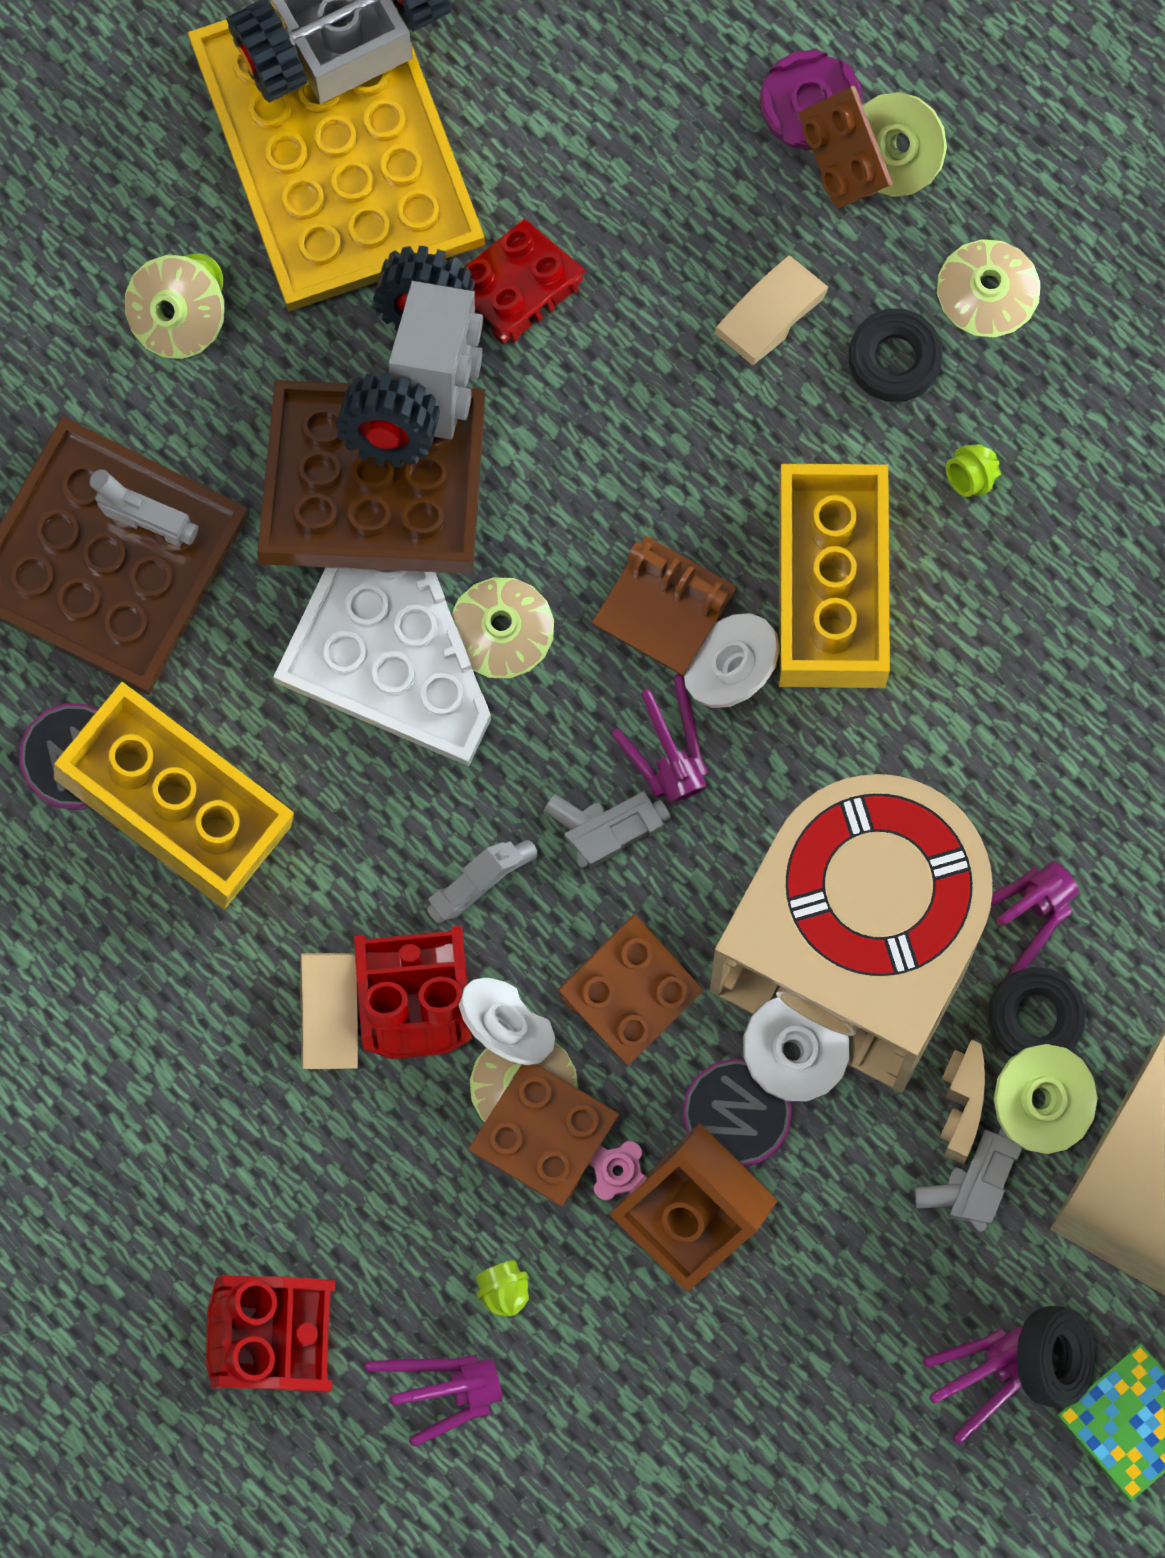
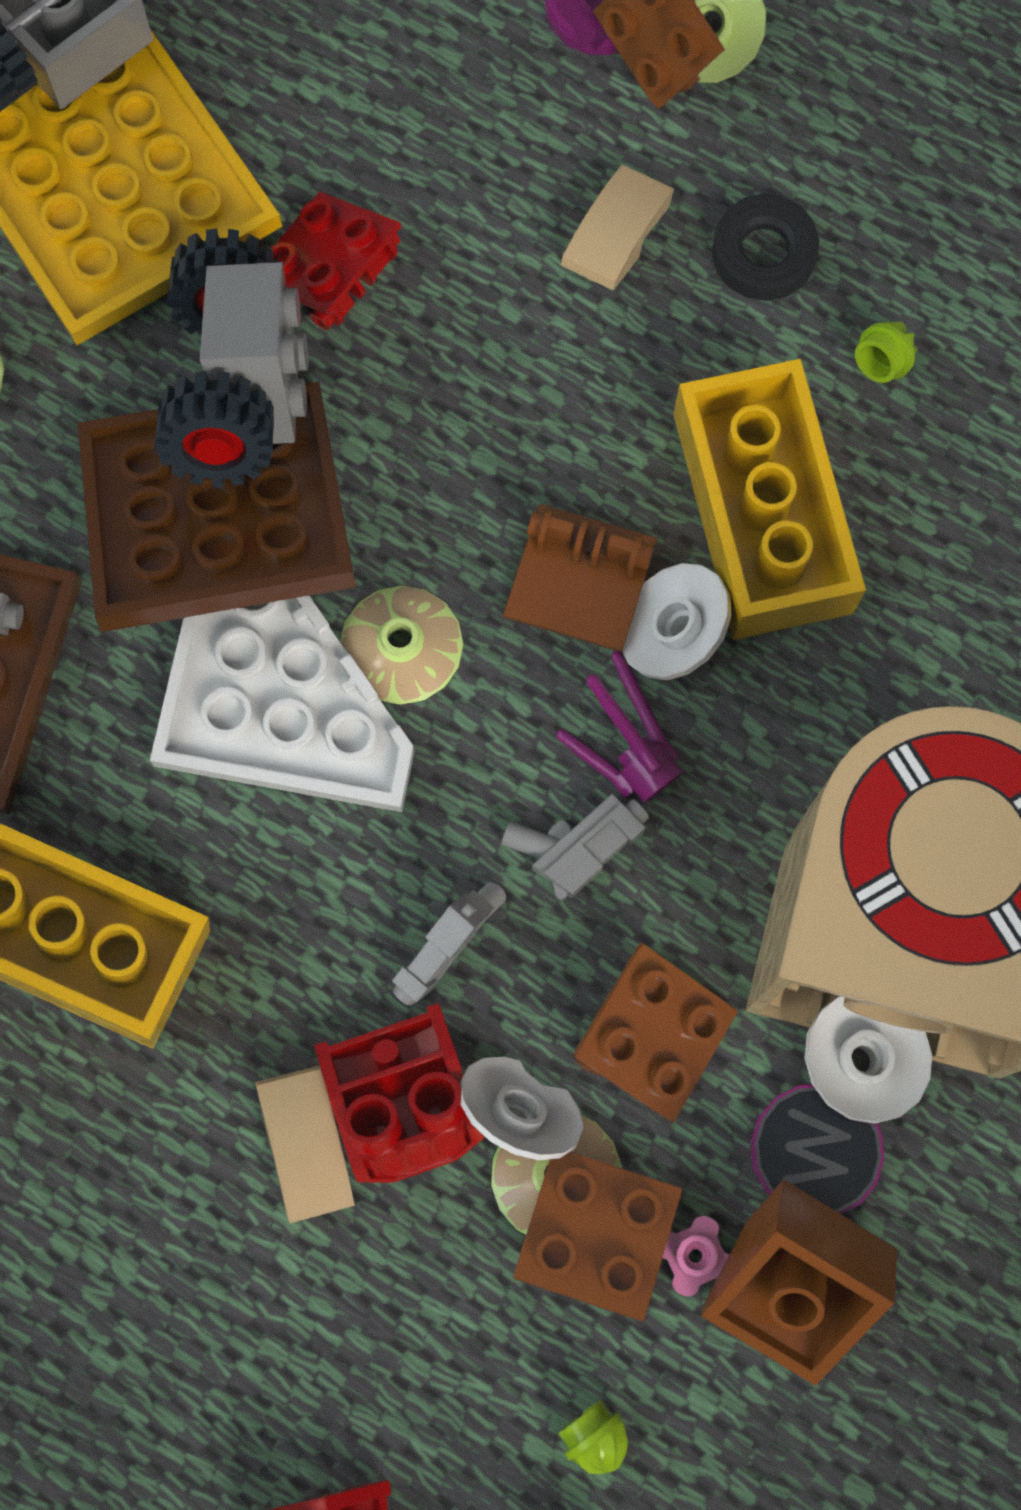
camera: 15 degrees left, 0 degrees up
(983, 309) = (839, 176): tan dish -> none

